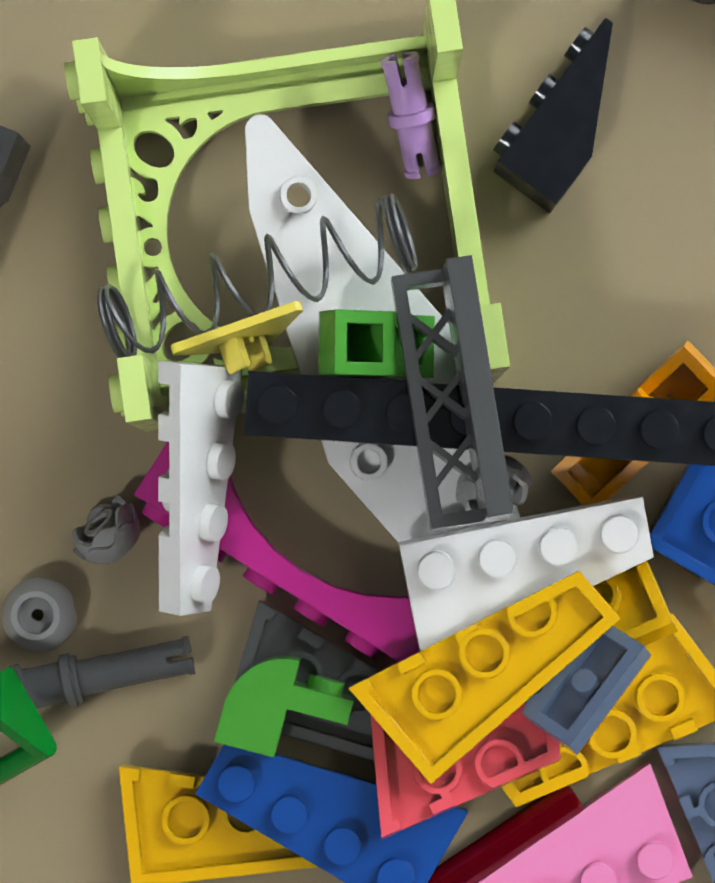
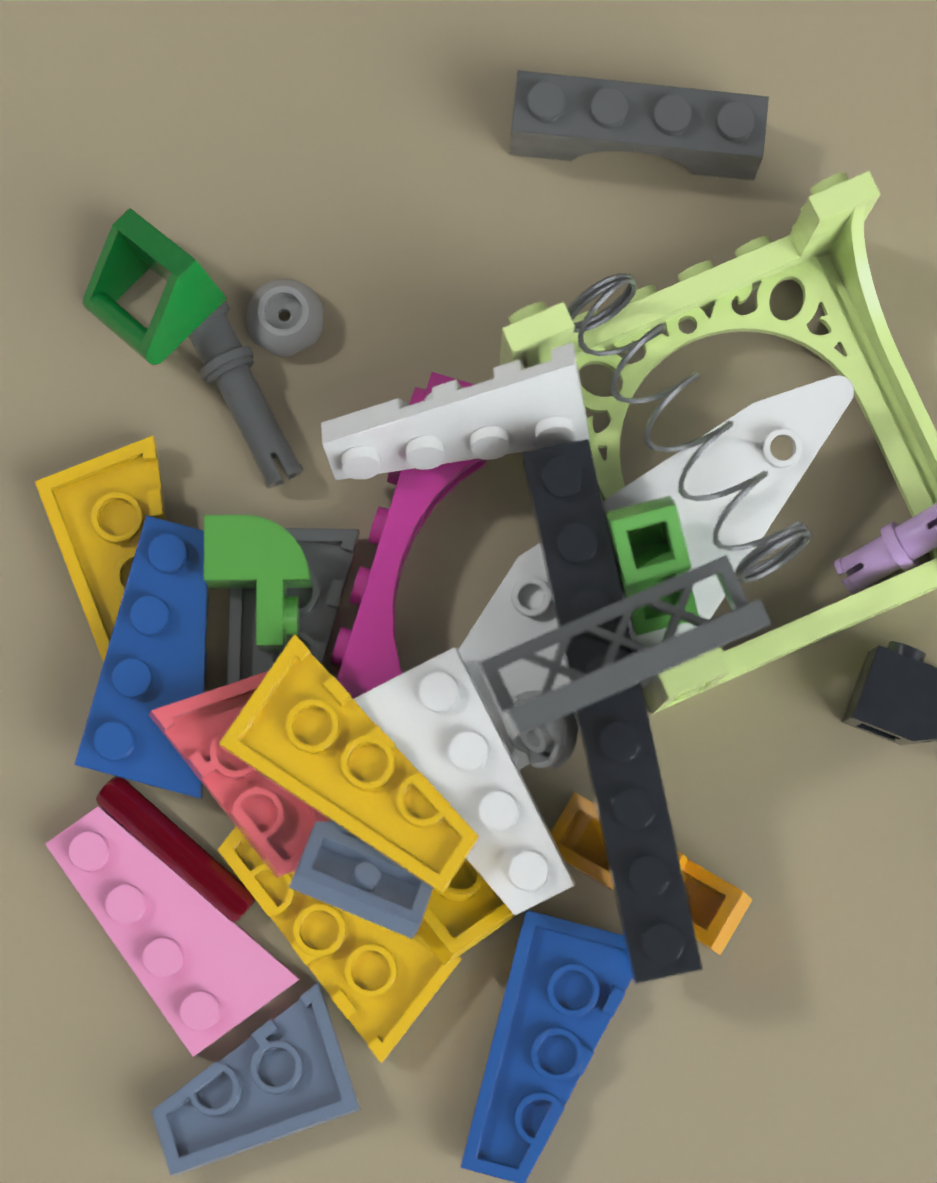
camera: 75 degrees right, 5 degrees down
(108, 532) = (386, 361): light grey plate -> none
(243, 341) = (626, 437): light yellow piece -> none

